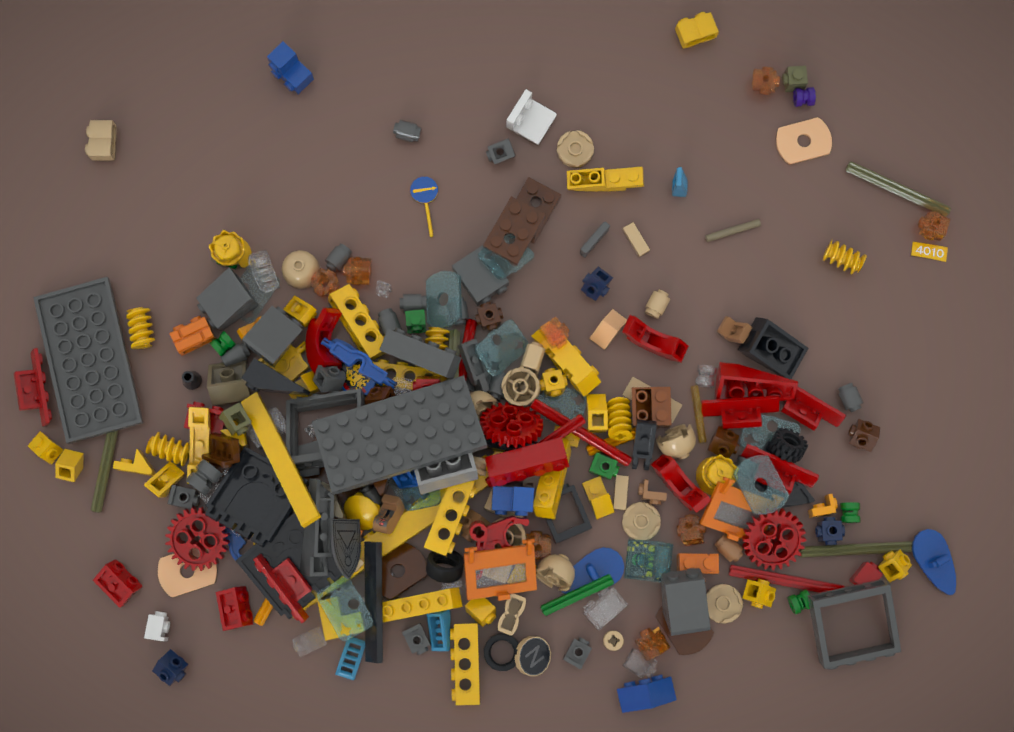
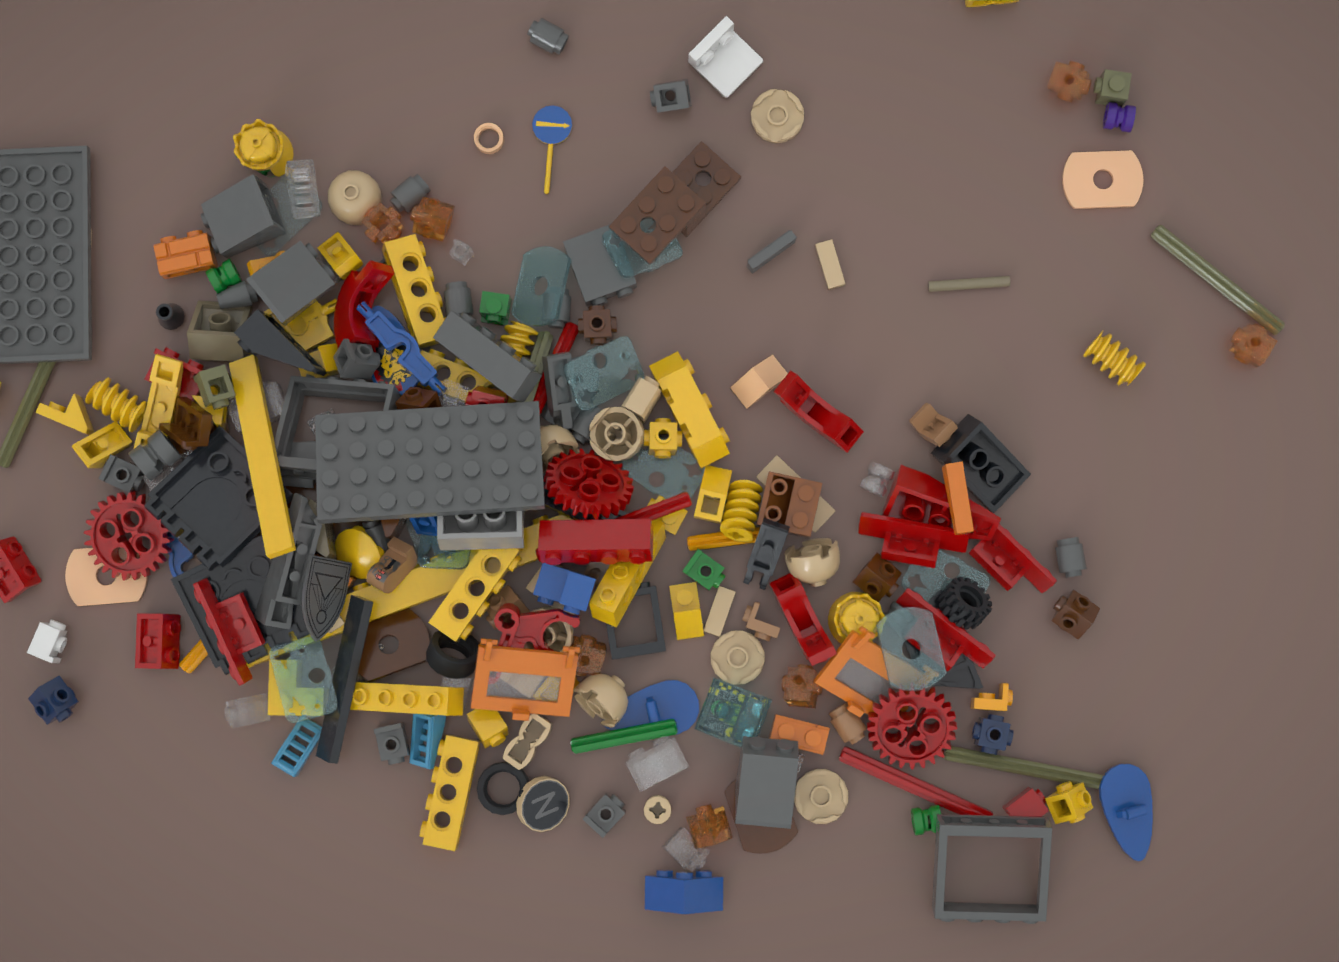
camera: 20 degrees right, 5 degrees up
(139, 328) = (115, 227): yellow piece -> none
(383, 200) = (486, 126): none -> light nougat piece
(413, 302) = (498, 280): dark grey brick -> none
(480, 466) = (531, 529): tan wheel -> none
(555, 333) = (680, 372): clear orange brick -> none
(582, 433) = (685, 518): red axle -> none
(596, 283) = (757, 314): dark blue brick -> none
(605, 180) = (807, 170): yellow slope -> none
(657, 304) = (835, 362): tan brick -> none
(679, 183) = (911, 200): dark azure slope -> none
(698, 414) = (853, 535): clear yellow bar -> none
(759, 593) = (872, 795): yellow brick -> none
(765, 373) = (958, 497): none -> orange piece
(850, 517) = (1024, 721): green wheel -> none
(929, 251) = (1238, 378): yellow sticker -> none

